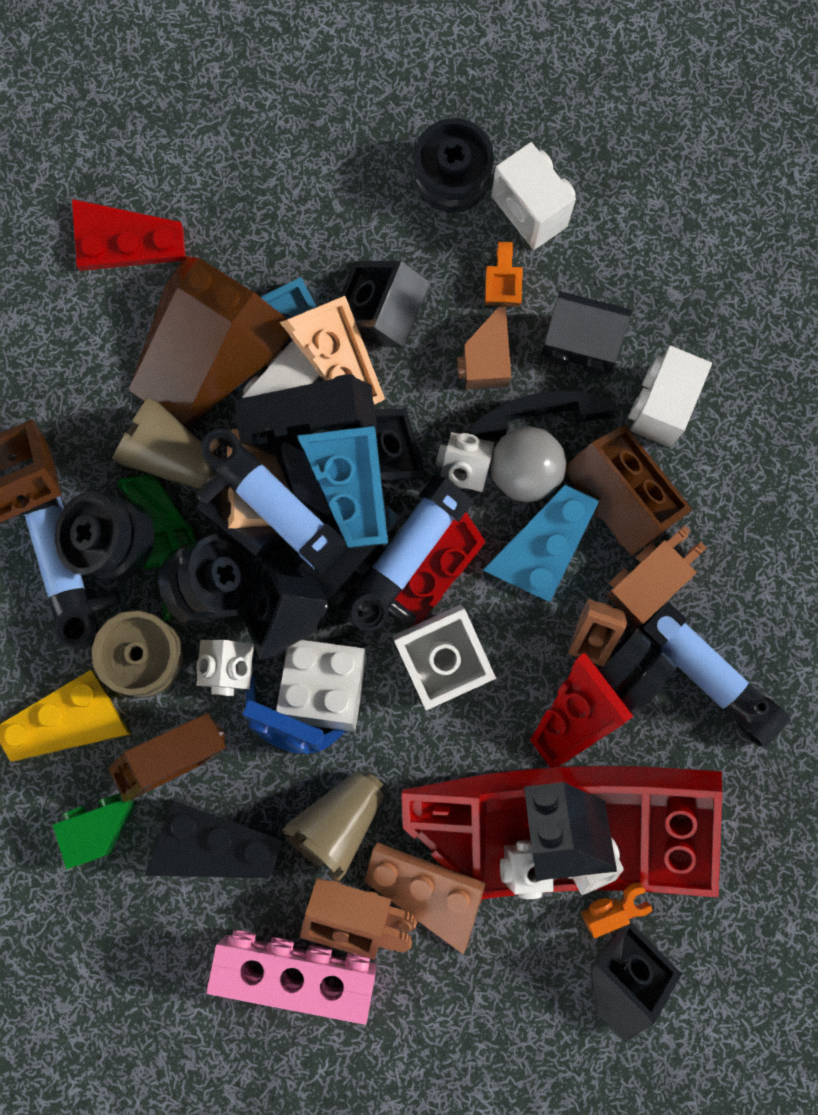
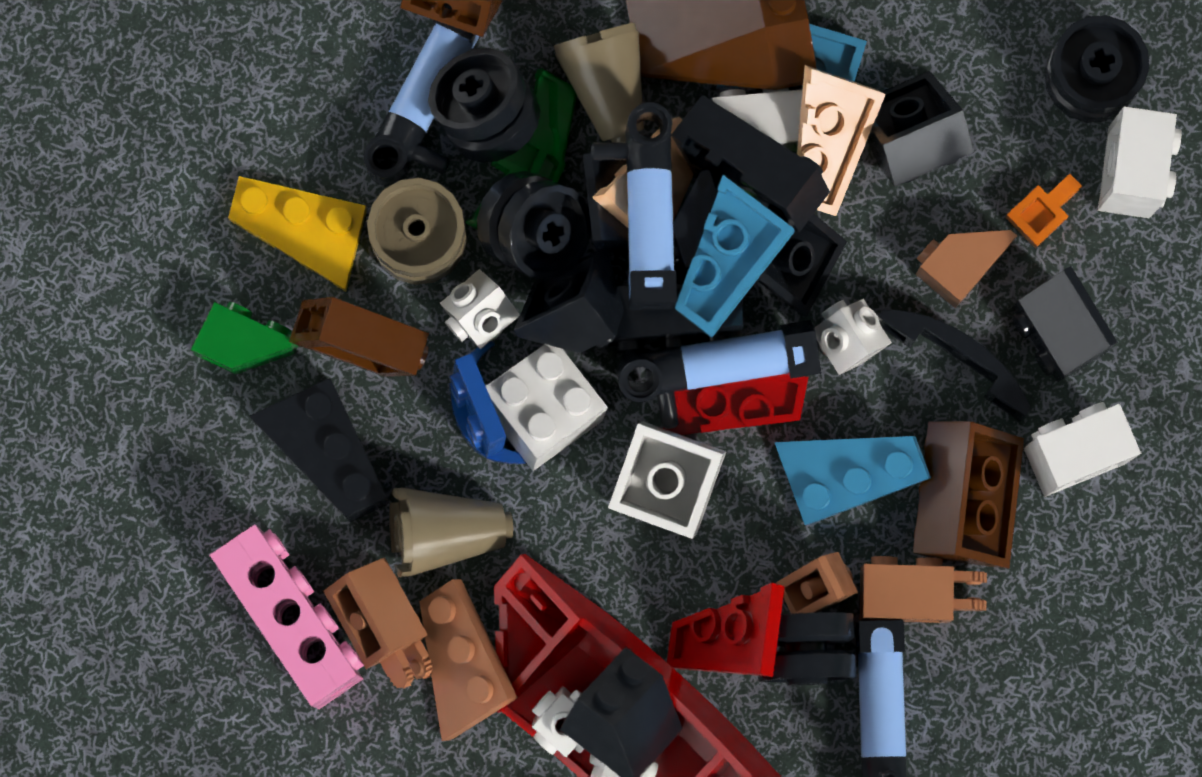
camera: 45 degrees right, 0 degrees up
(528, 464) = (901, 389): light grey piece -> none

